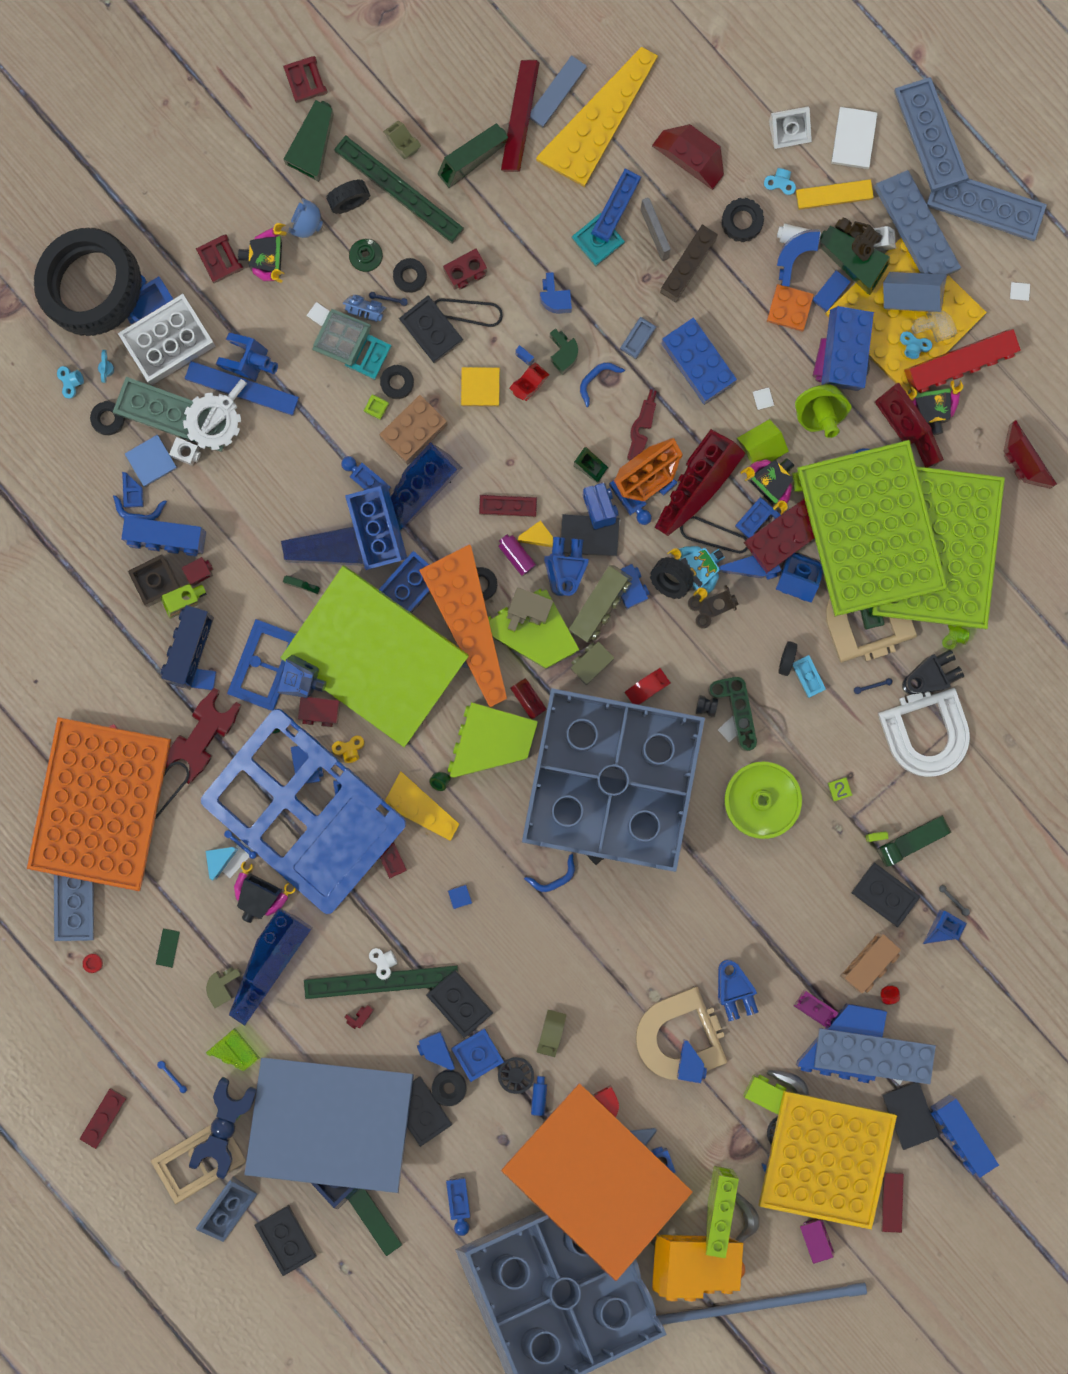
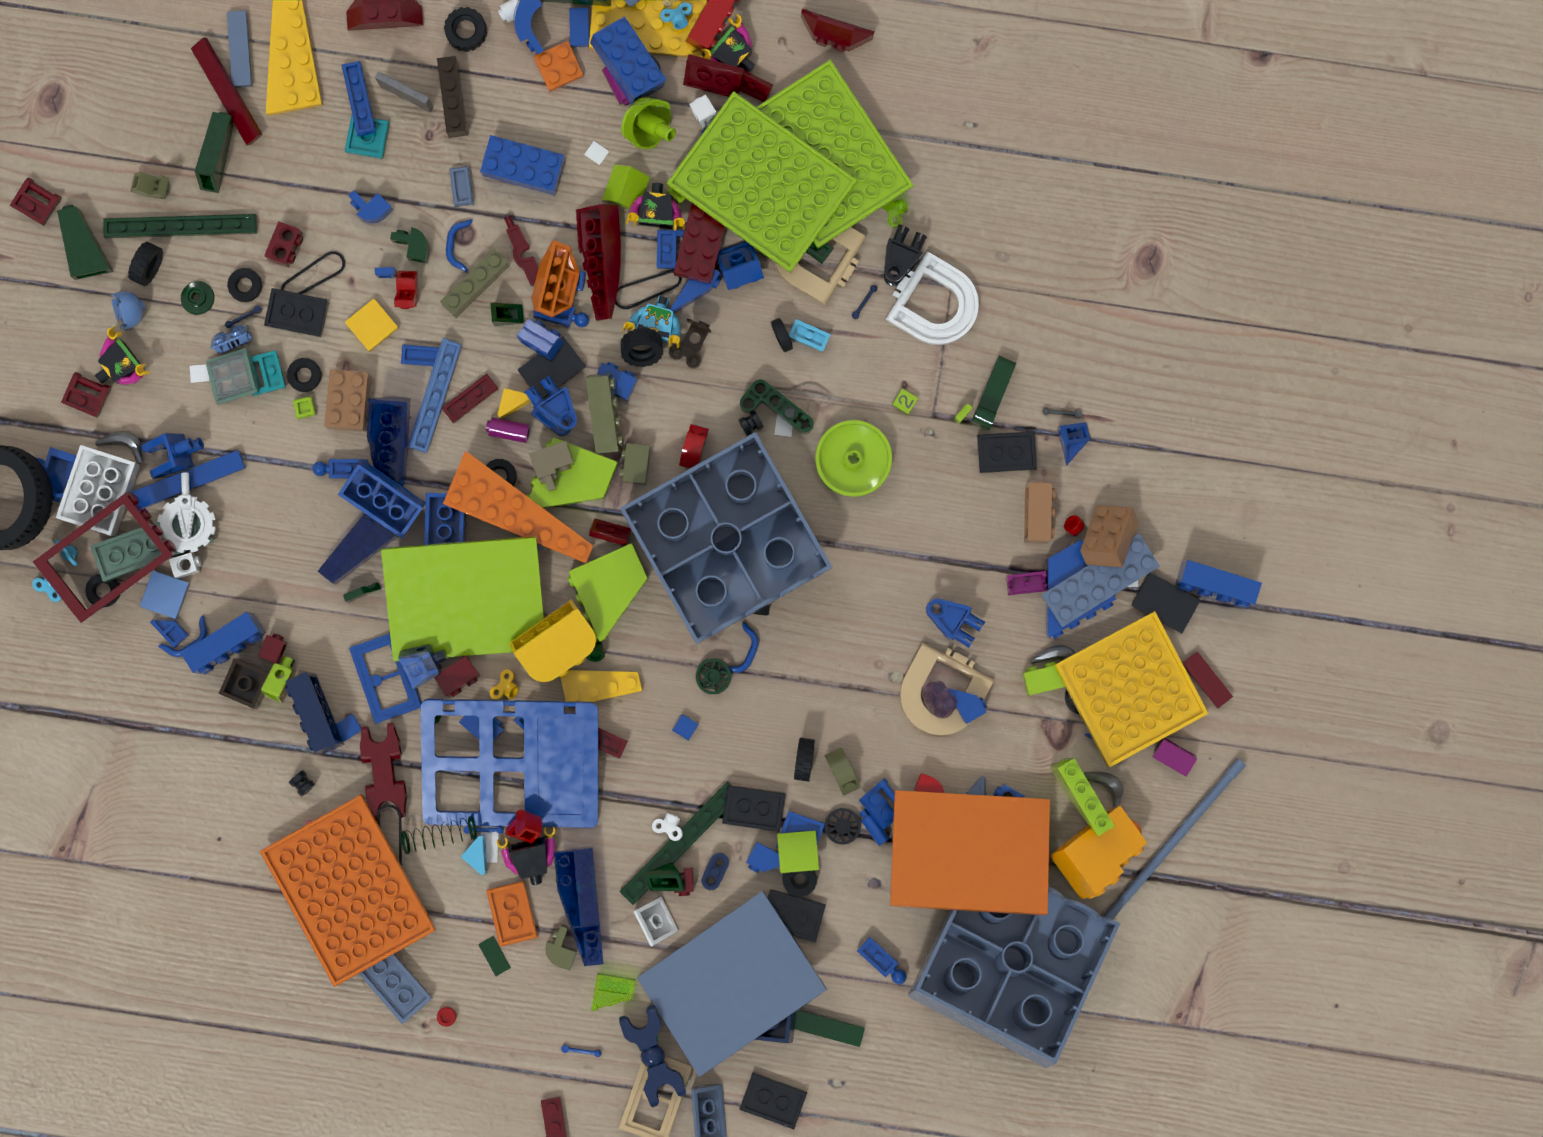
camera: 40 degrees left, 0 degrees up
(133, 697) = (306, 784): none -> black wheel
(177, 797) = (404, 835): none -> dark green piece
(183, 389) = (143, 517): none -> dark red window
(208, 927) = (512, 913): none -> orange tile
(221, 317) = (123, 438): none -> flat silver piece
(273, 870) = (525, 826): none -> red brick
(312, 1026) = (655, 921): none -> white slope
(346, 1001) = (665, 879): none -> dark green slope
(389, 1027) = (715, 871): none -> dark blue plate
(414, 749) = (555, 644): none -> yellow brick
(465, 1066) = (798, 851): none -> lime slope
(482, 481) = (434, 395): none -> medium blue tile
(498, 441) = (419, 355): none -> blue tile
(514, 876) = (713, 676): none -> dark green wheel
(530, 1000) = (804, 759): none -> black tyre
(556, 1082) = (877, 805): none -> blue plate
(586, 421) = (475, 283): none -> olive brick
(672, 1042) = (939, 699): none -> clear purple dish
(872, 435) = (703, 111): none -> white brick
(910, 1028) = (1109, 536): none -> medium nougat brick

